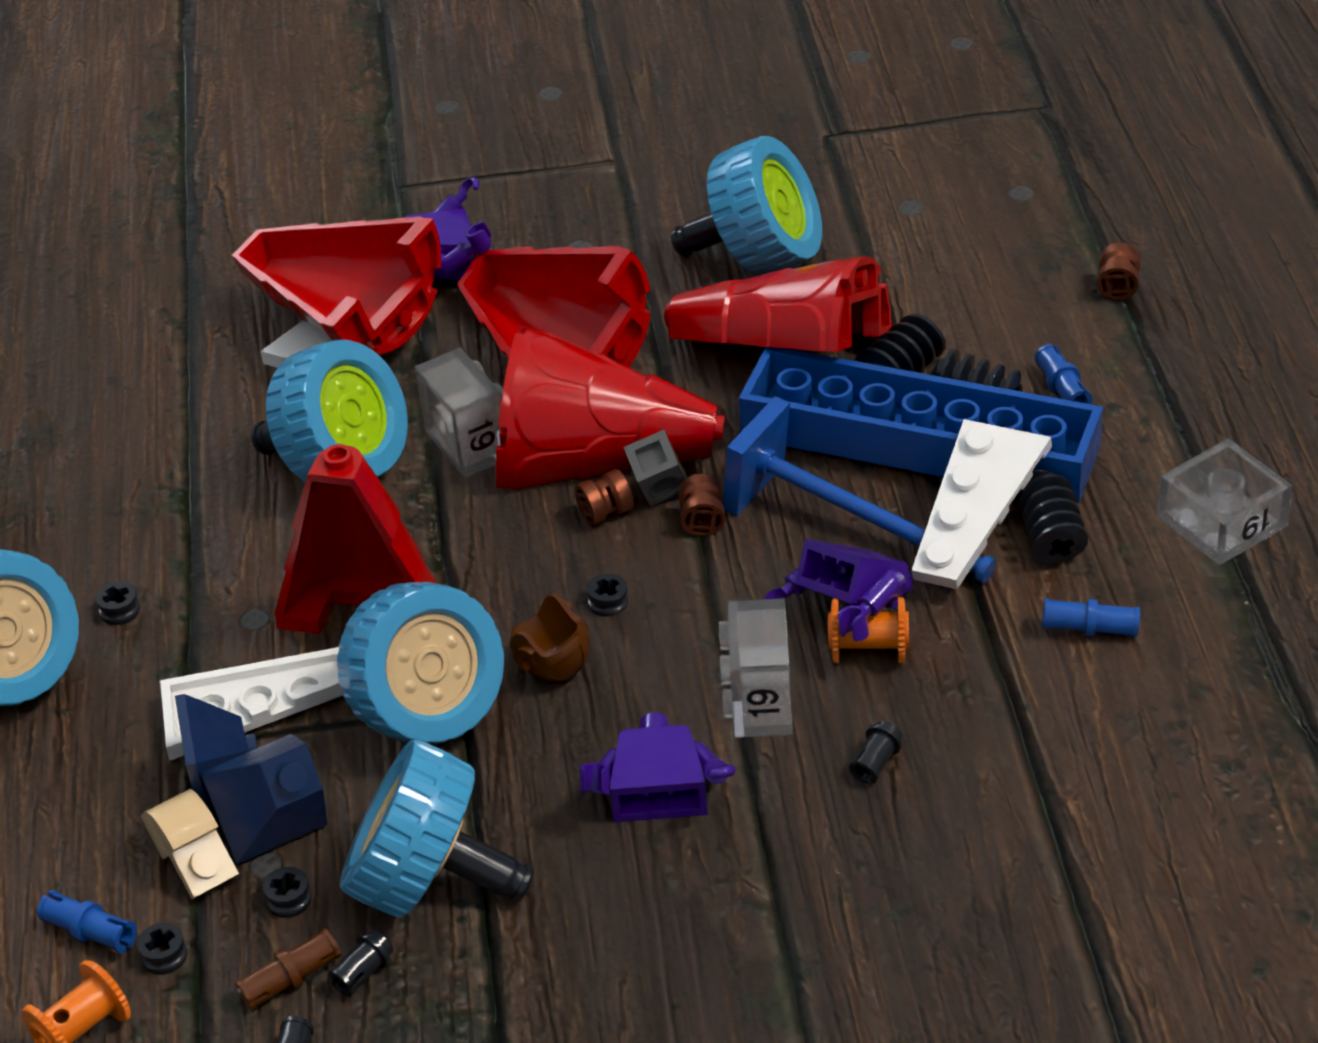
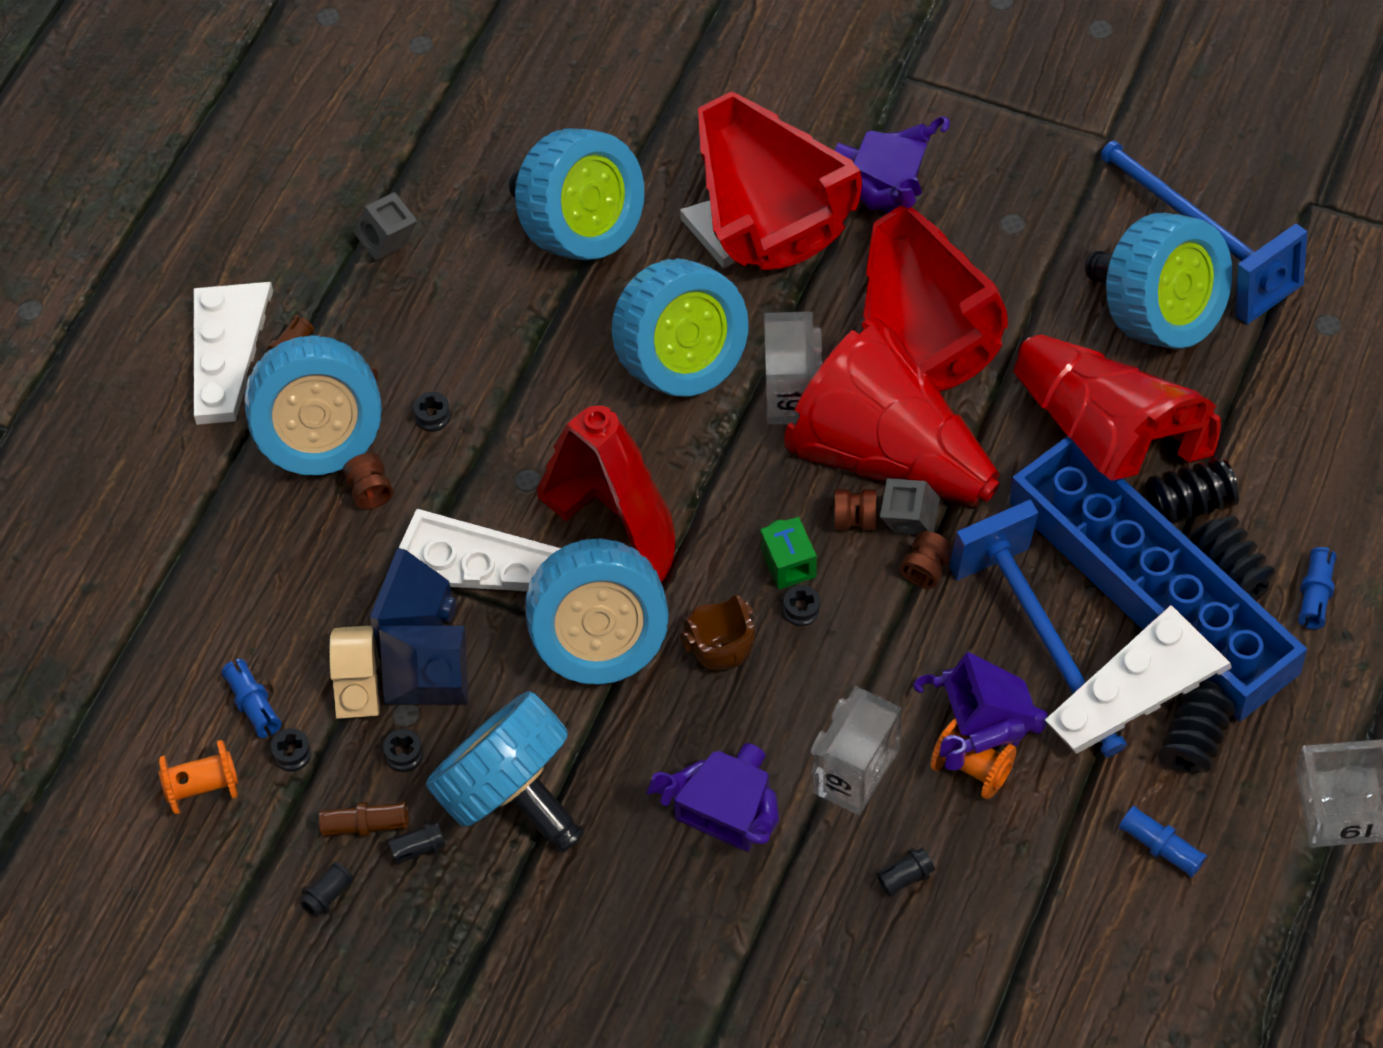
camera: 30 degrees right, 15 degrees up
(92, 683) = (367, 479): none -> copper wheel
(156, 359) = (579, 193): none -> dark azure wheel
(565, 555) = (788, 552): none -> green brick
(839, 174) = (1263, 275): none -> blue tile

